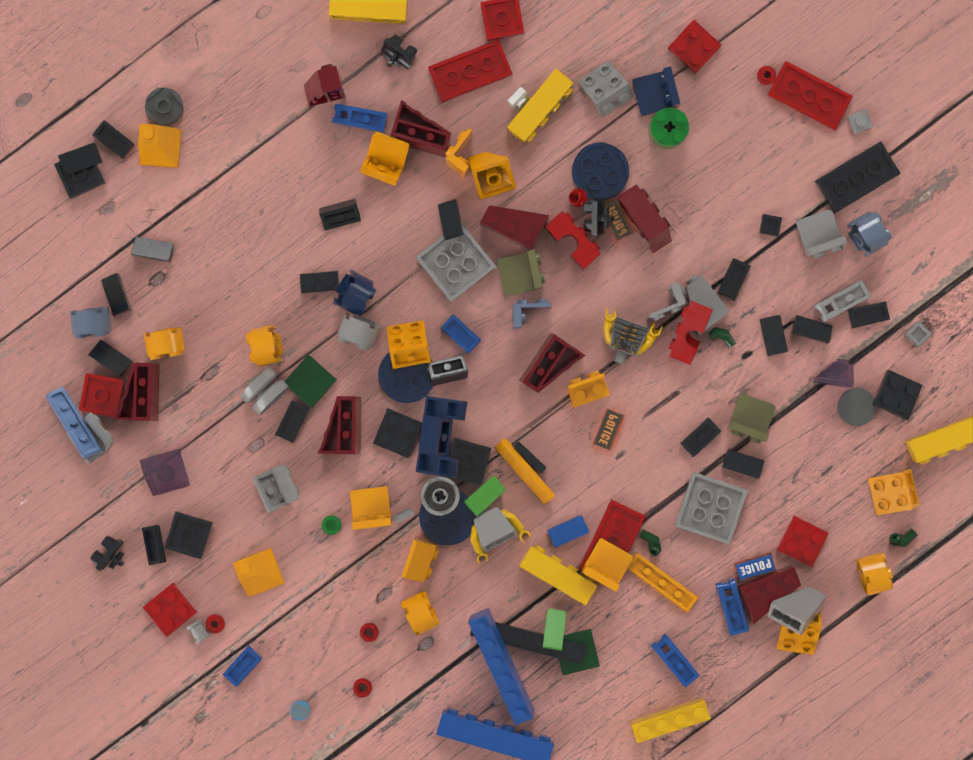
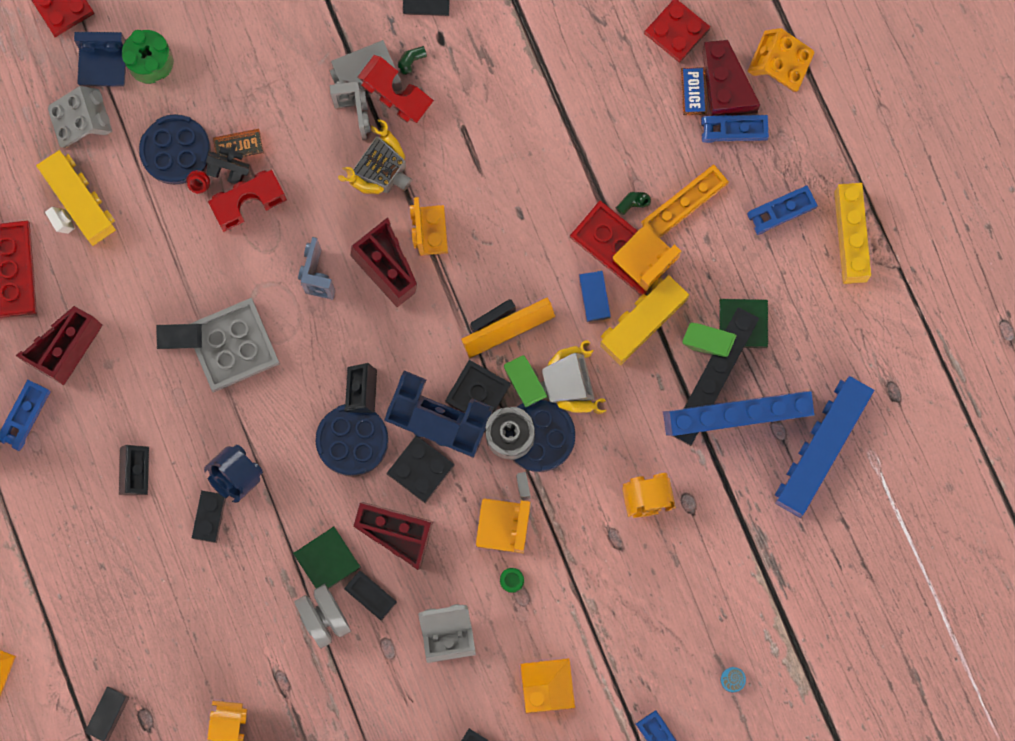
camera: 70 degrees left, 10 degrees down
(265, 345) = (266, 601): light orange brick -> none
(358, 331) = (281, 481): light grey brick -> none
(358, 692) = (727, 587): red plate -> none
(367, 638) = (656, 560): red plate -> none
(385, 158) = (80, 394): light orange bracket -> none
(408, 344) = (315, 426): light orange bracket -> none
(419, 560) = (583, 481): light orange slope -> none
(459, 163) = (113, 309): light orange bracket -> none
(460, 334) = (321, 362): blue tile -> none
(491, 174) = (139, 275): light orange slope -> none
(515, 225) = (208, 262): dark red wedge -> none
(520, 273) = (268, 270): olive bracket -> none
(608, 429) = (485, 218): clear orange tile -> none
(646, 217) = (245, 107): dark red wedge -> none
(700, 437) = (523, 113): black plate -> none
(710, 508) = (610, 123): light grey plate -> none
(733, 279) = (347, 29): black tile -> none
(743, 463) = (568, 74): black tile -> none
(751, 418) = (517, 50): olive bracket -> none
(797, 609) = (755, 51): light grey slope -> none

